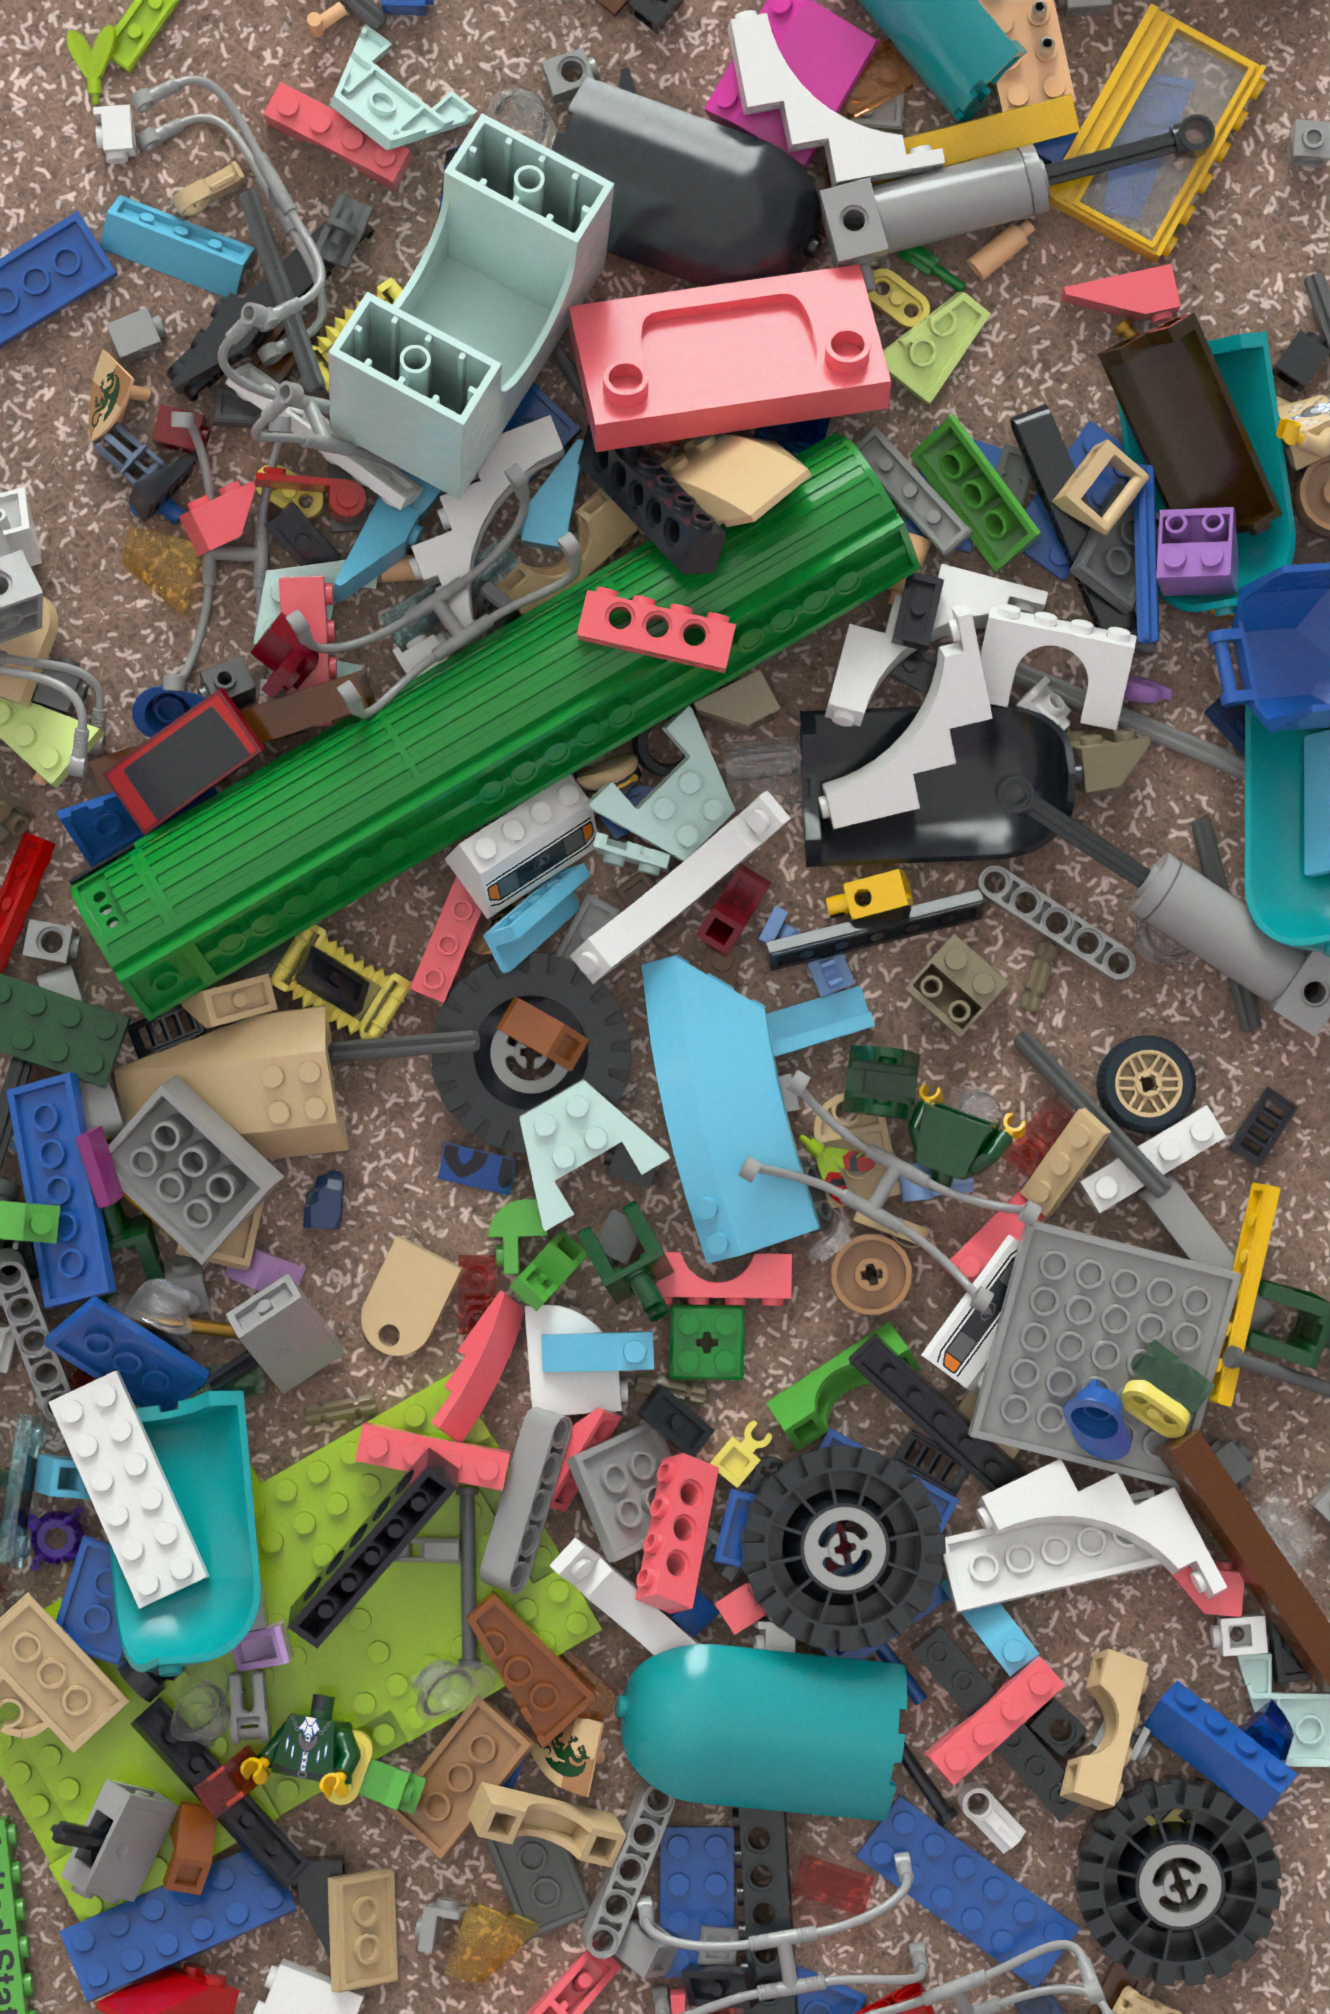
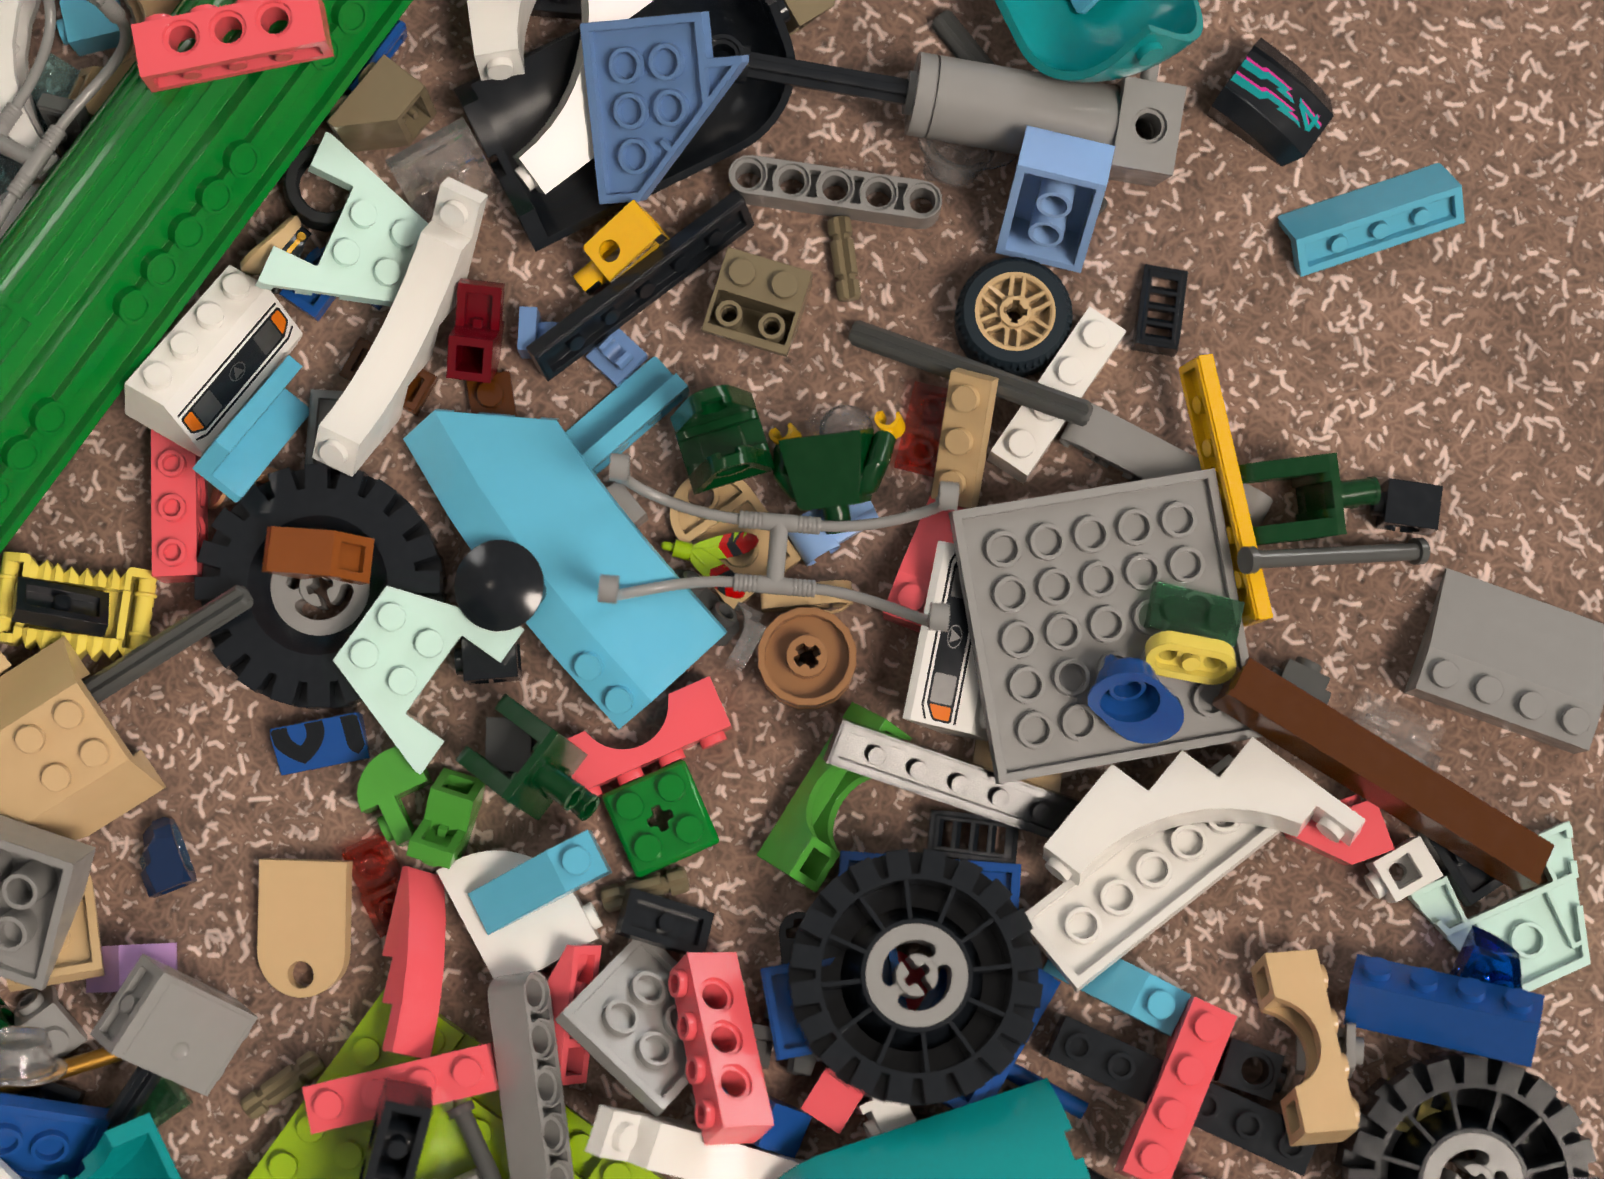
camera: 20 degrees left, 5 degrees down
(617, 853) = (336, 322): light aqua wing -> none
(667, 1119) = (499, 585): none -> black dish
(737, 1458) = (753, 932): light yellow plate -> none
(946, 797) = (649, 95): none -> medium blue wing
(1218, 1013) = (1055, 198): none -> light blue brick

